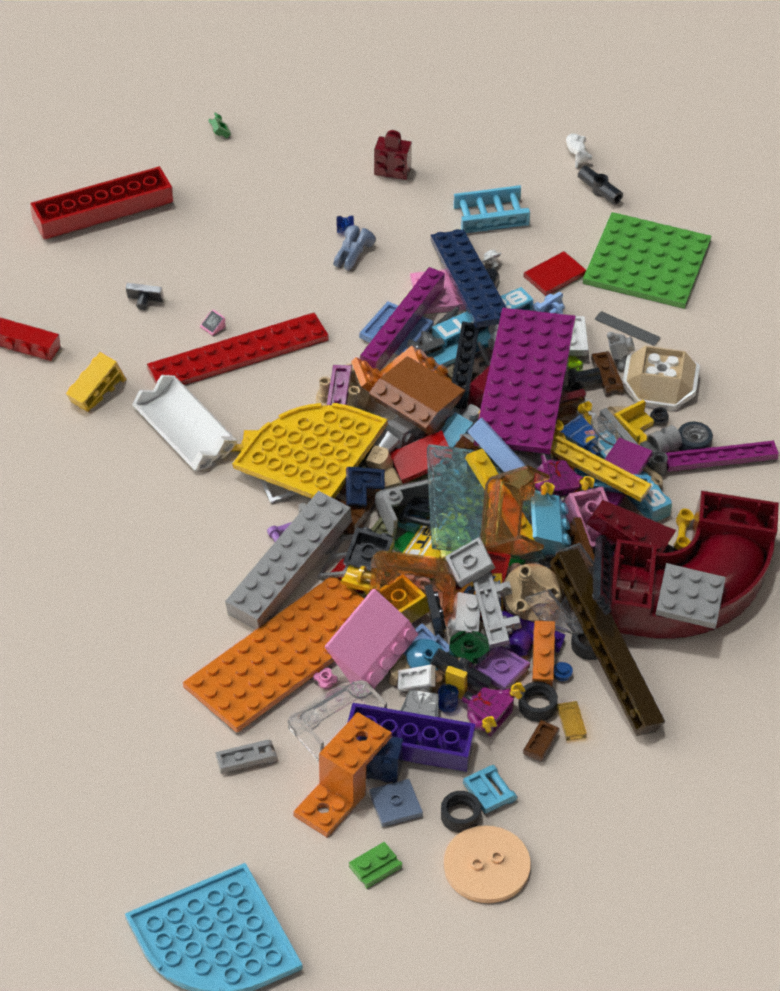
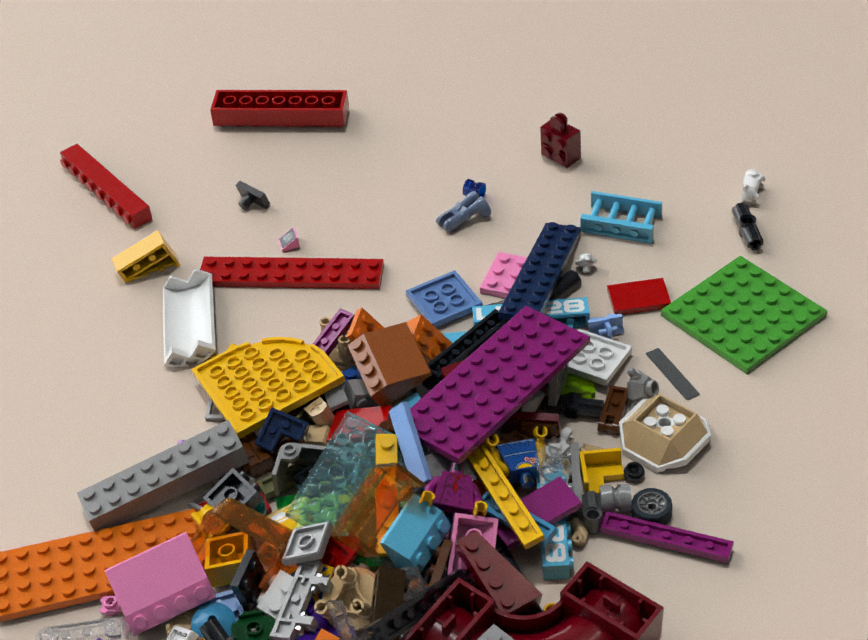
camera: 35 degrees right, 5 degrees down
(219, 127) = (434, 73): green plate -> none
(404, 319) = (449, 289): magenta brick -> none
(429, 342) = (459, 324): dark grey tile -> none

